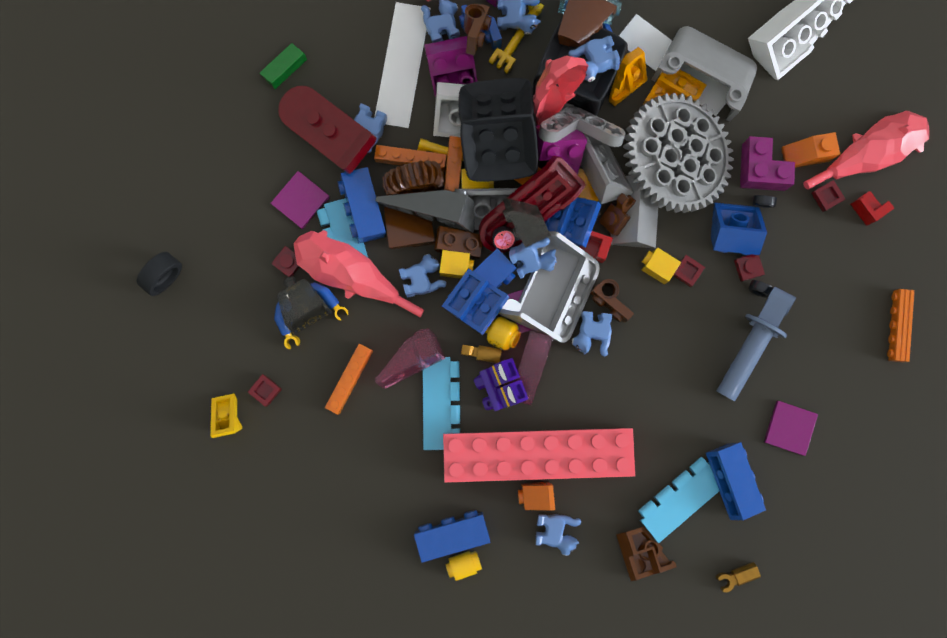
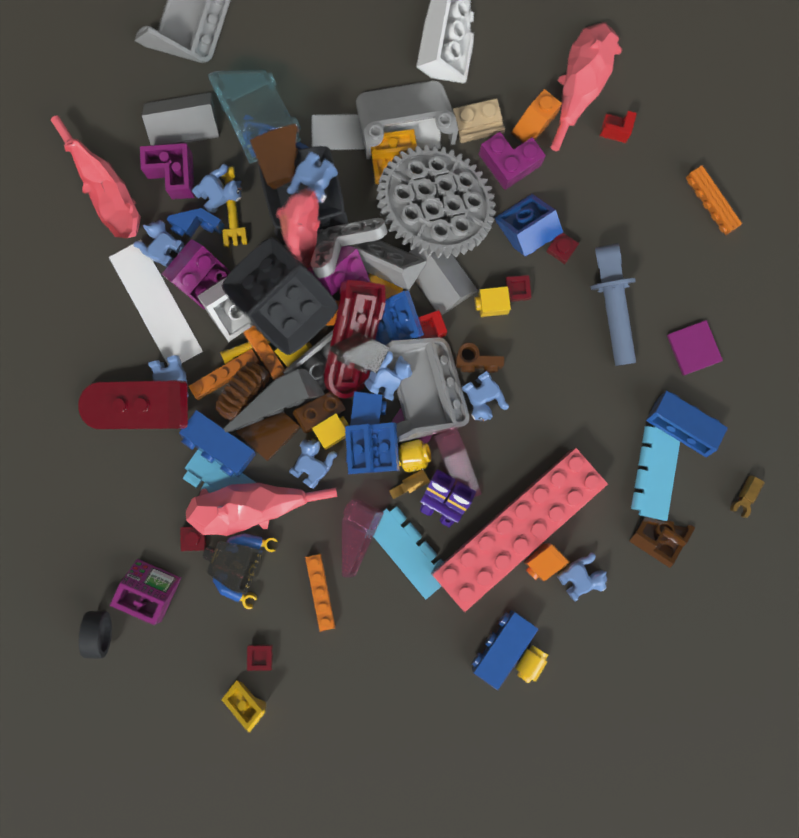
camera: 45 degrees left, 0 degrees up
(221, 273) = (146, 592): none -> magenta slope
(283, 65) = (58, 382): green slope -> none
(300, 200) = (161, 480): magenta piece -> none
(475, 23) = (190, 225): reddish brown plate -> none
(503, 238) = (352, 379): tile -> none
(616, 214) = (426, 289): reddish brown plate -> none
(629, 77) = (349, 170): light orange wing -> none
(760, 288) = (585, 257): black tile -> none
(763, 117) = (479, 120): none -> tan plate
(764, 201) = (533, 186): black tile -> none
(828, 196) = (578, 143): dark red plate -> none

